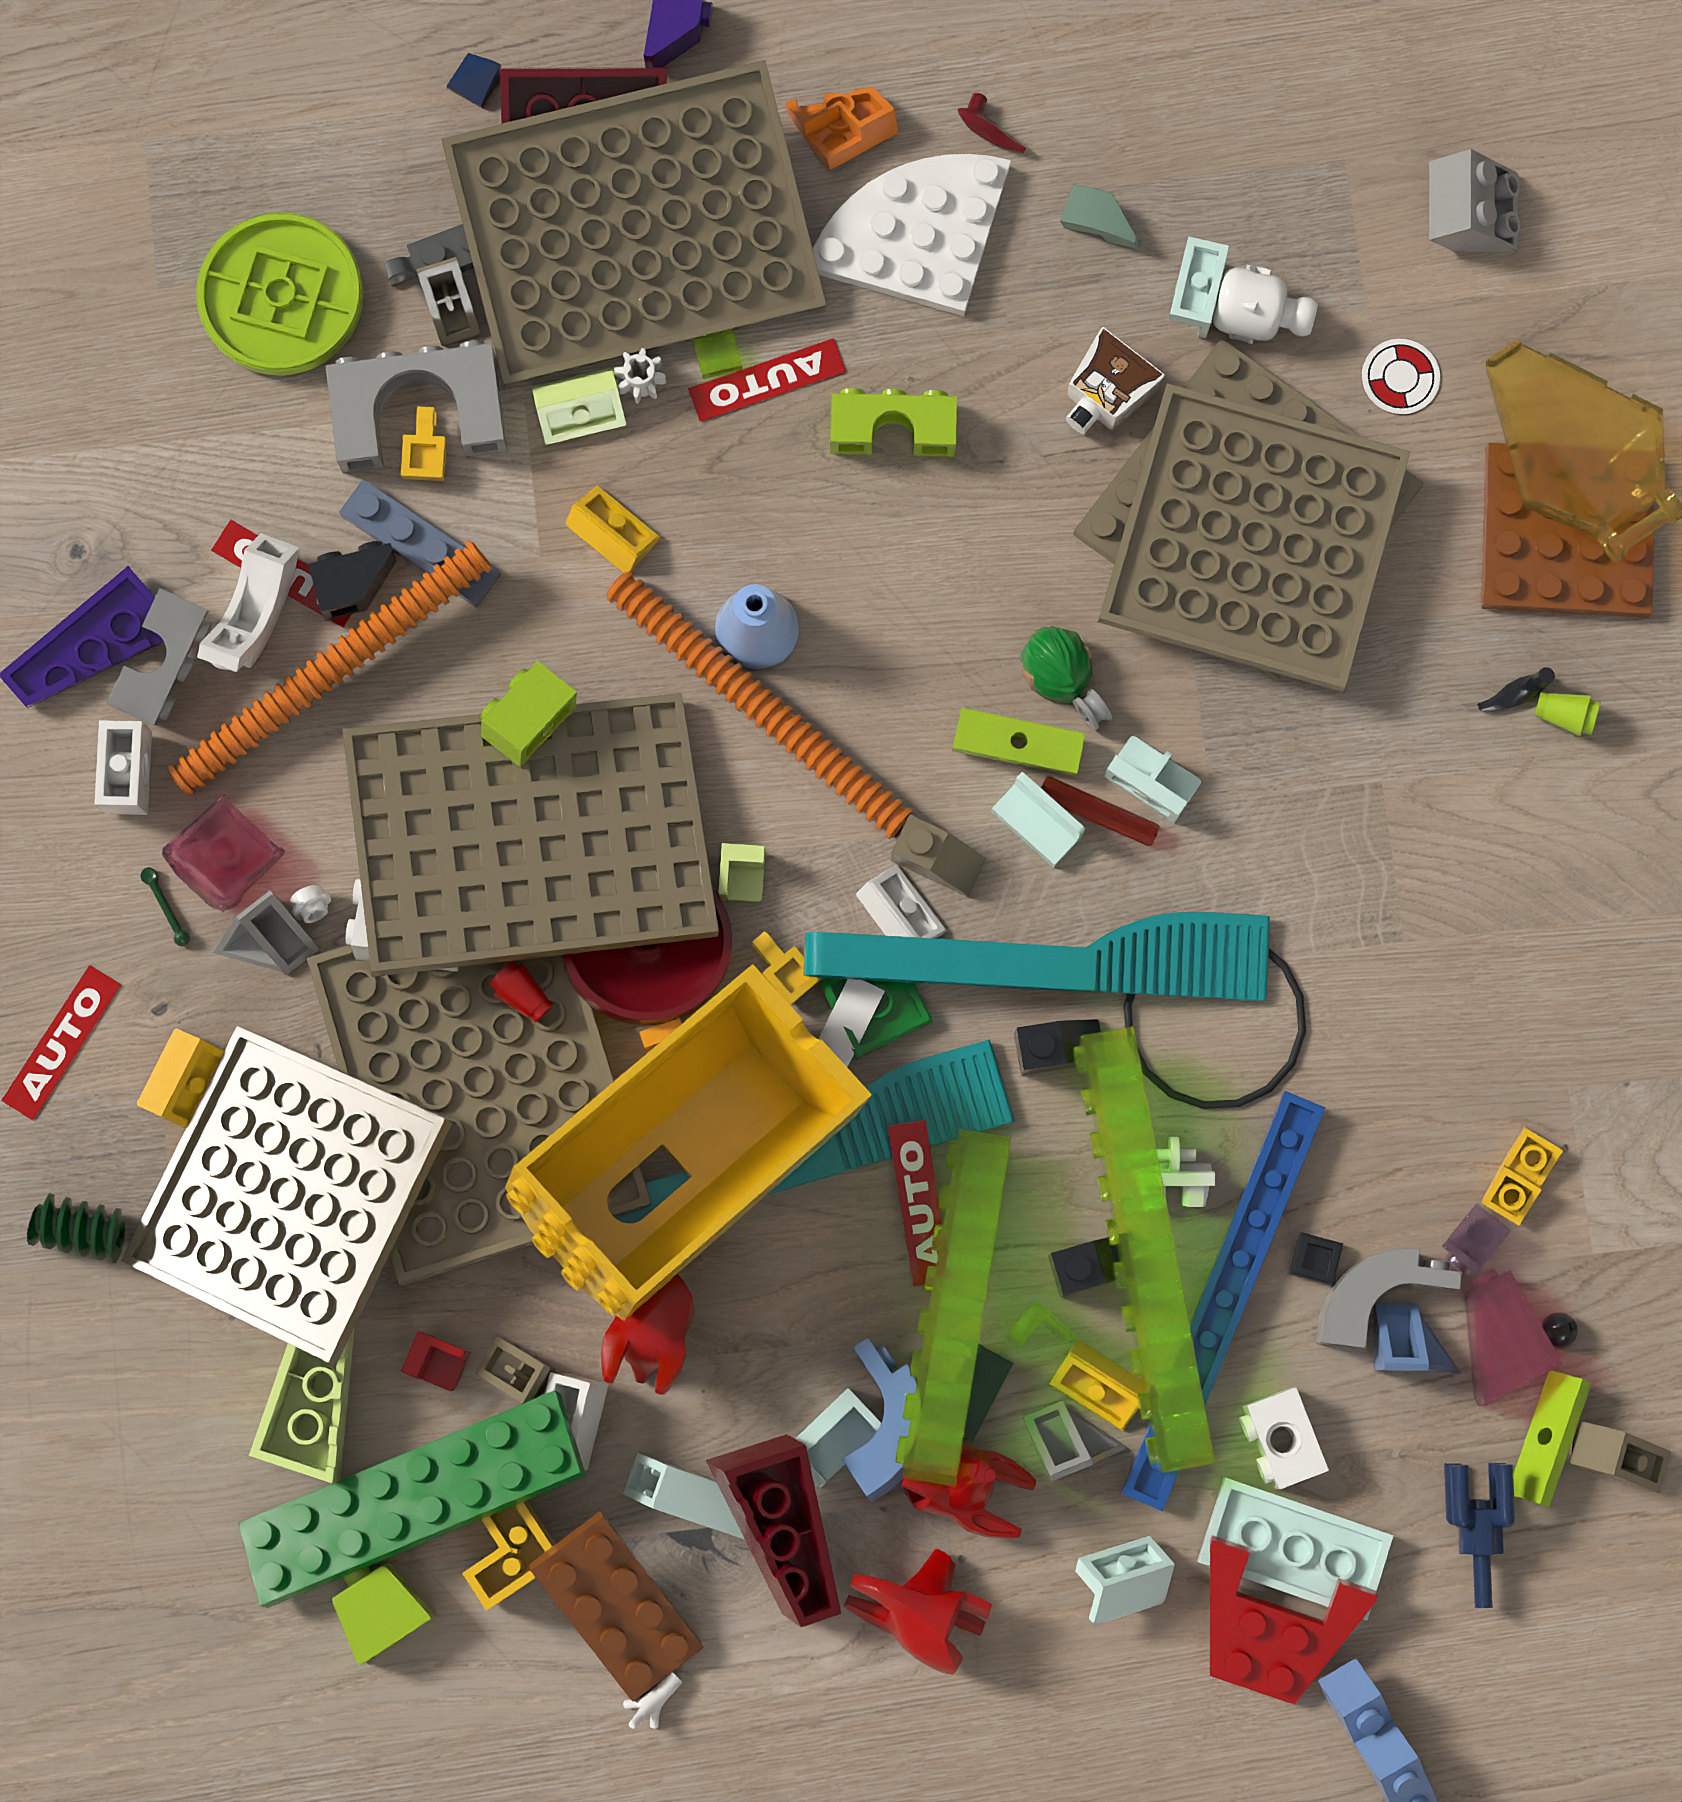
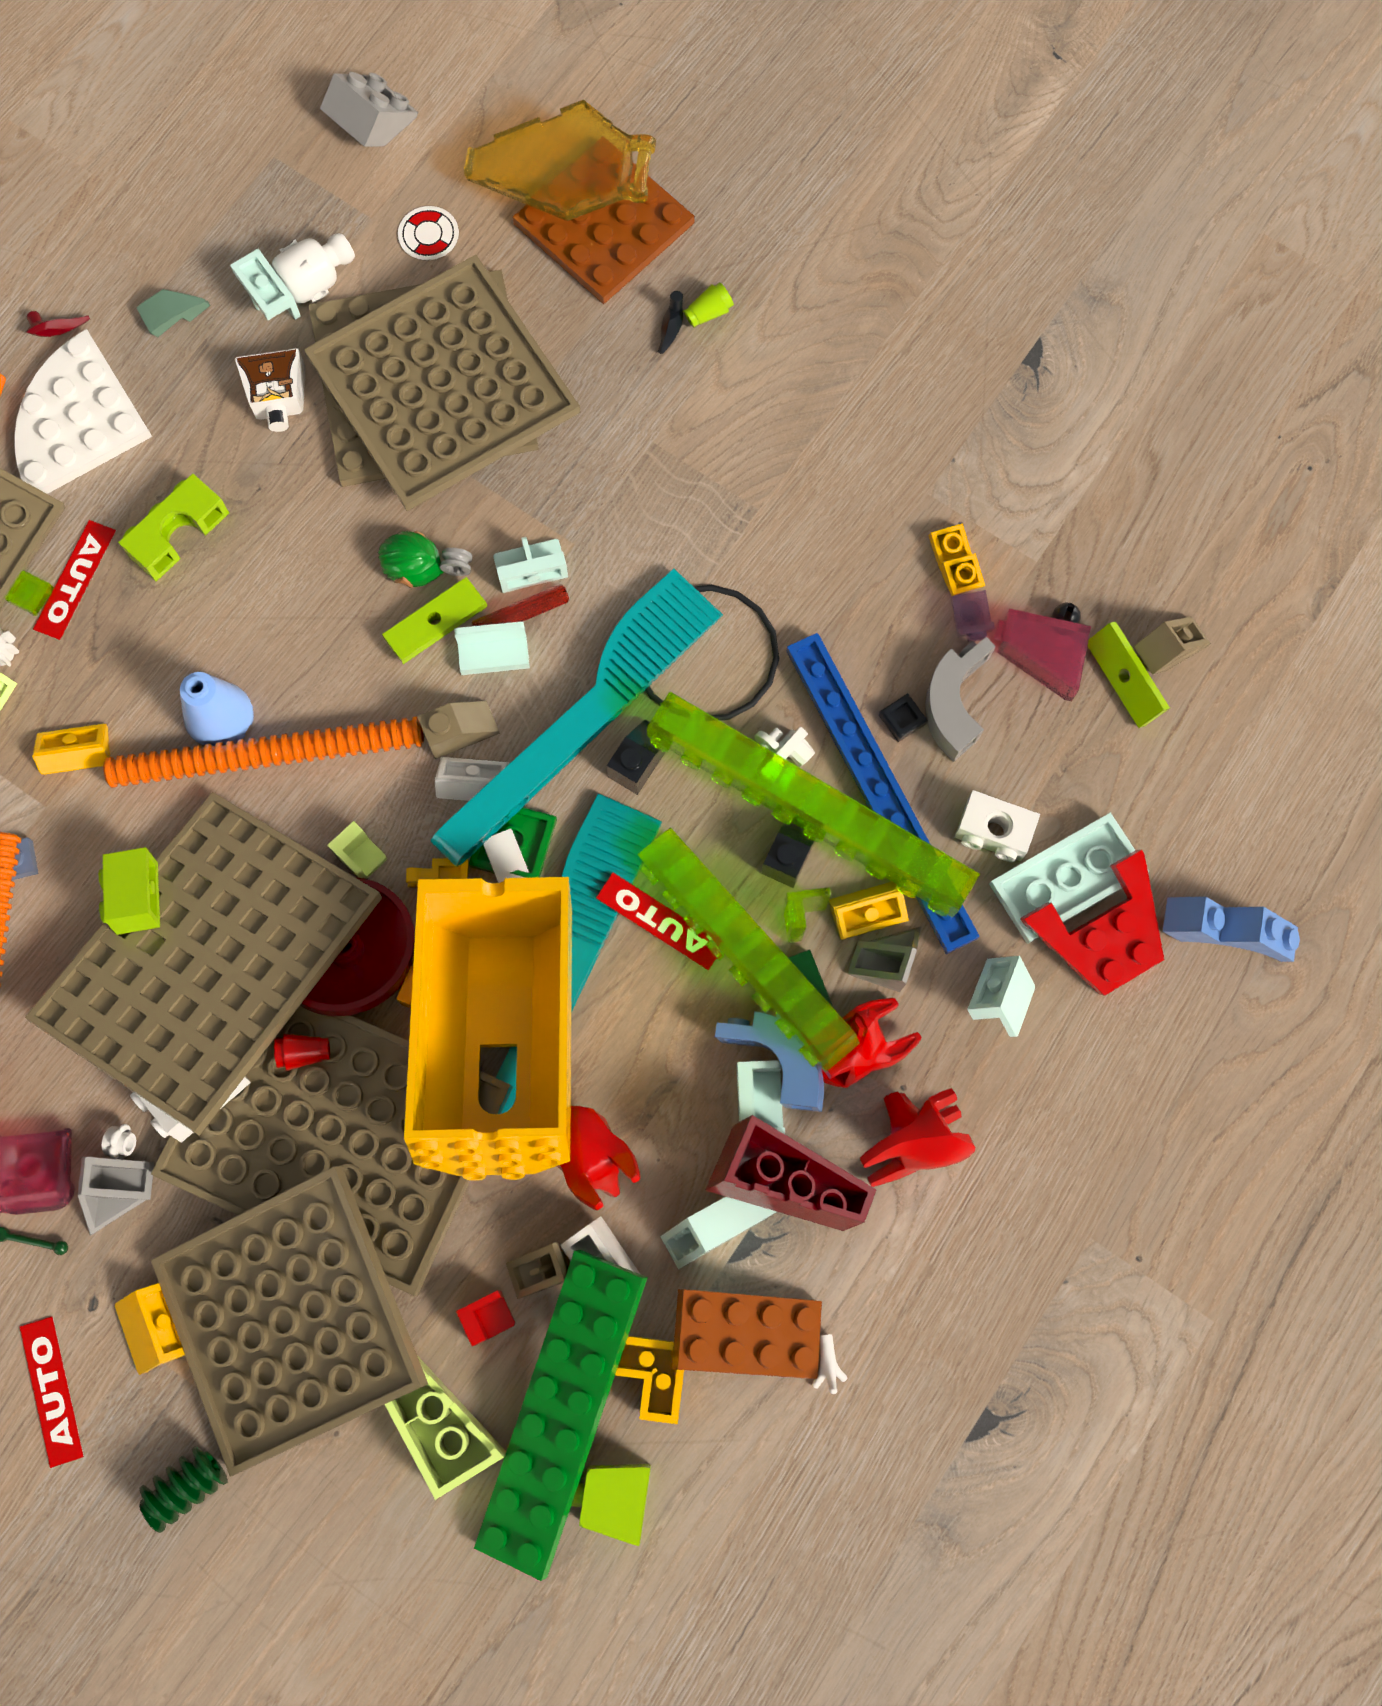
camera: 50 degrees left, 5 degrees down
(1406, 1341) = (998, 709): medium blue slope -> none
(1480, 1520) = (1143, 754): dark blue plant -> none

